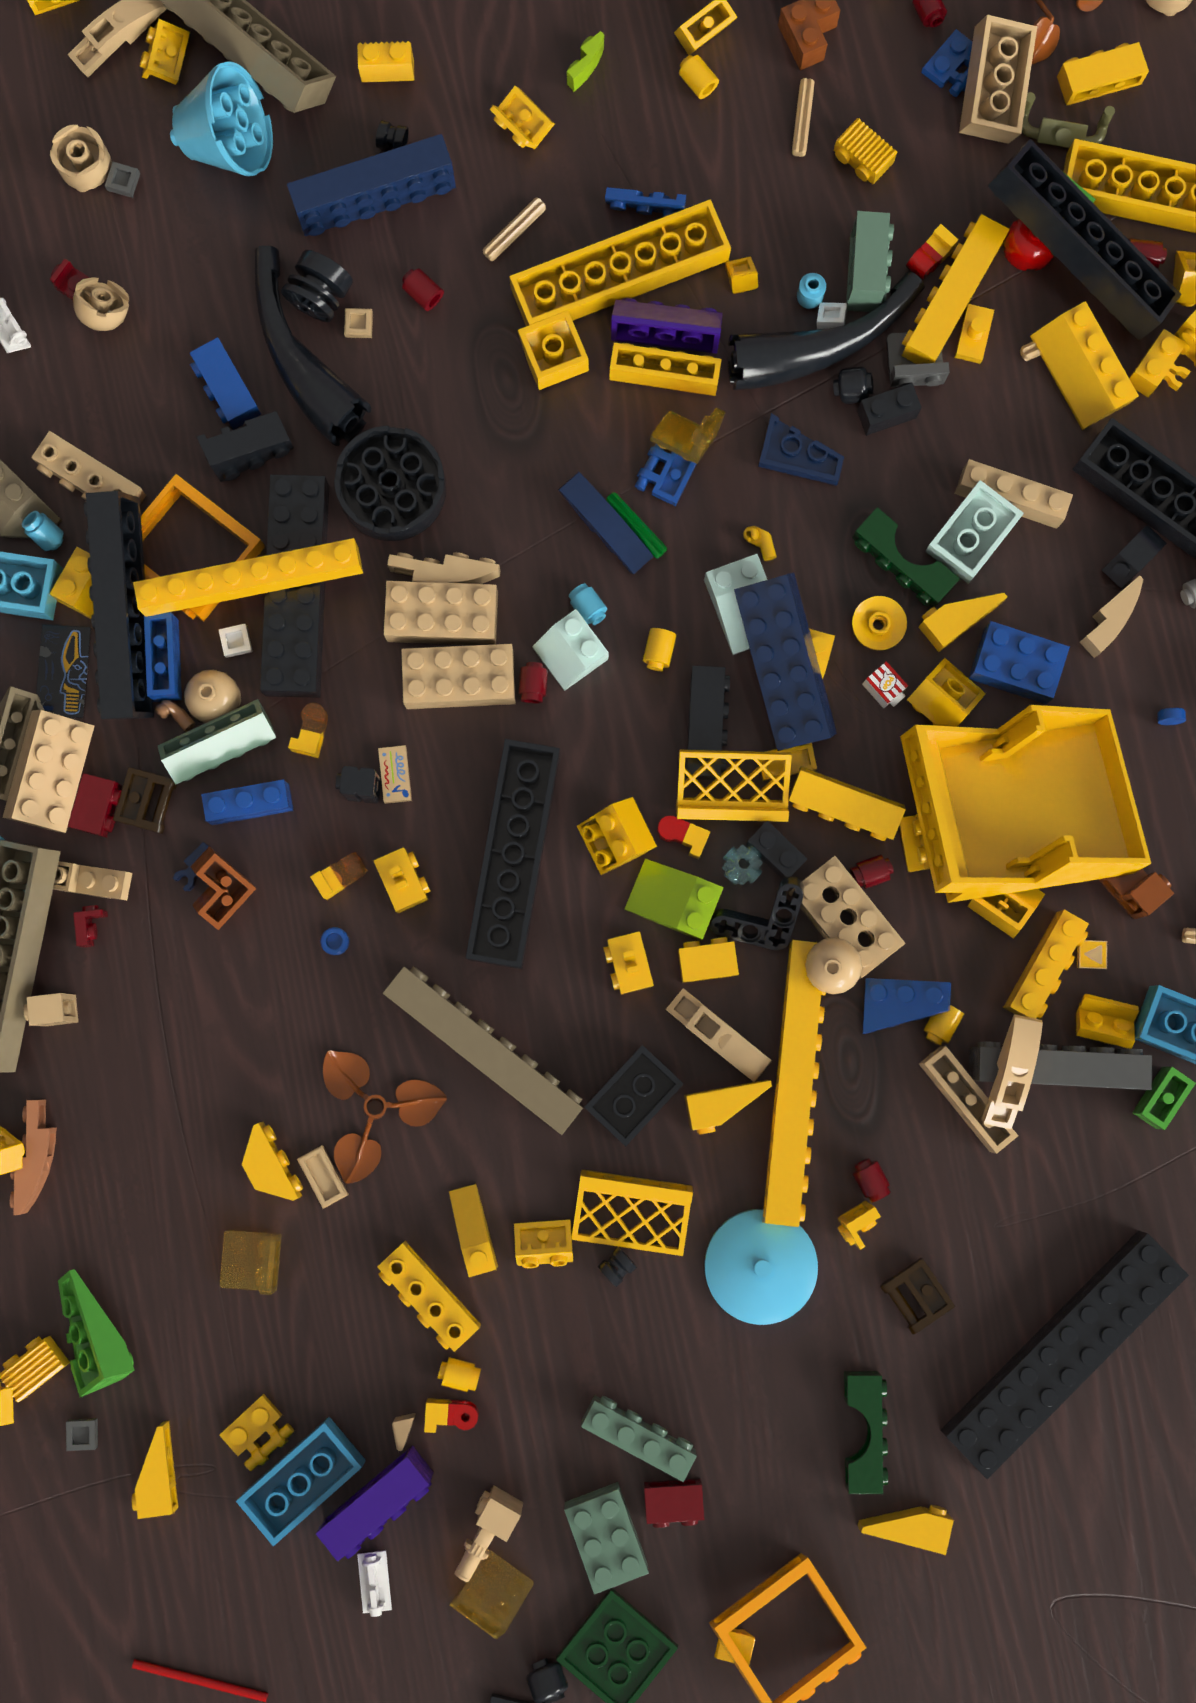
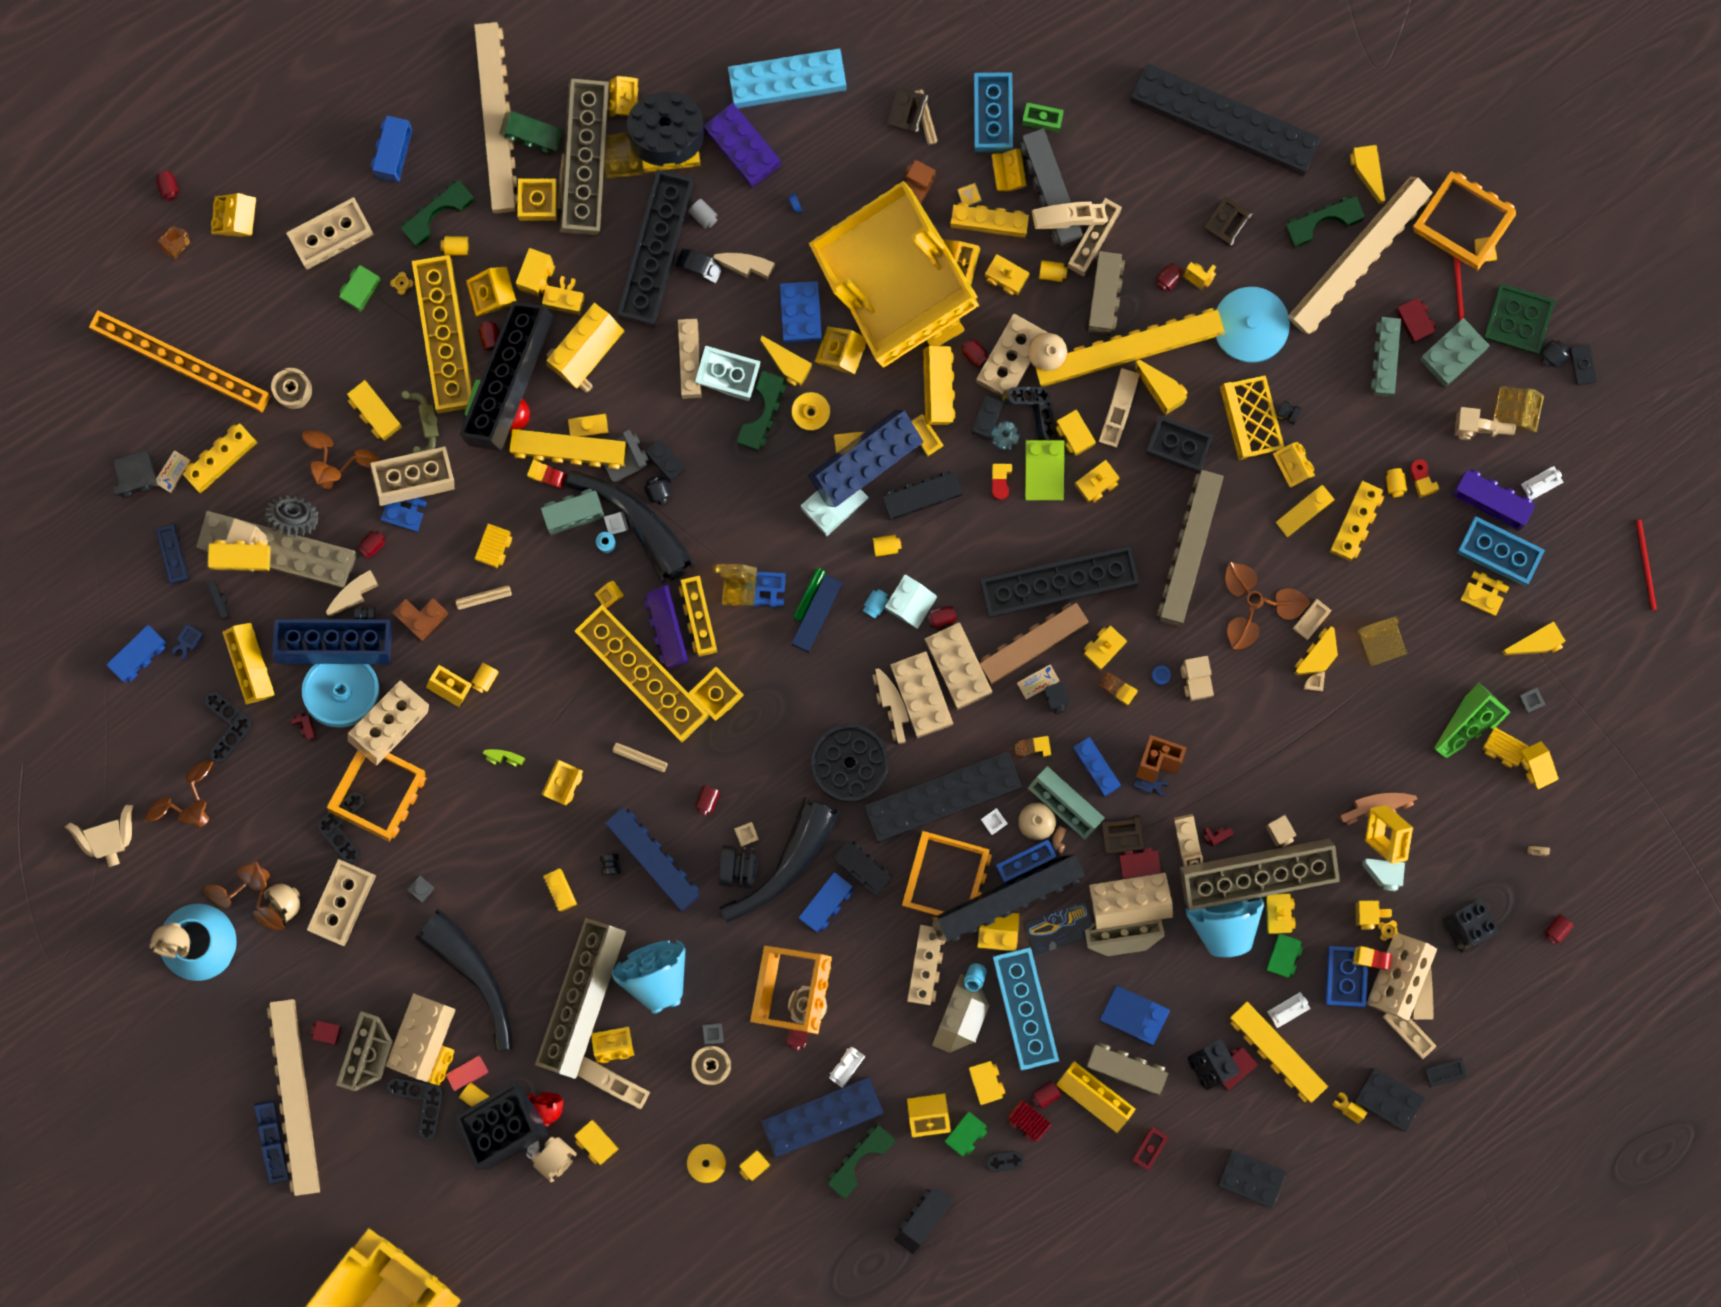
camera: 110 degrees left, 0 degrees up
(145, 262) = (766, 984): none -> light orange window
(235, 1143) = (1315, 682): none -> tan tile
(248, 577) = (954, 820): yellow brick -> none
(306, 986) = (1197, 676): none -> tan brick
(401, 1429) = (1443, 503): tan slope -> none
(447, 788) = (1033, 643): none -> medium nougat brick
(616, 835) = (1019, 523): yellow slope -> none
(656, 202) = (588, 675): blue wing -> none
(695, 1582) = (1458, 288): none -> red axle
(738, 808) = (972, 459): yellow fence -> none
(762, 540) = (785, 509): yellow arm -> none
(797, 455) = (718, 509): dark blue wing -> none
(798, 1464) = (1360, 255): none -> tan brick
(884, 1080) = (1105, 290): none -> dark tan brick
(886, 686) = (850, 391): white brick -> none
(901, 1001) = (1049, 301): blue wing -> none
(962, 957) = (1006, 275): none -> yellow brick

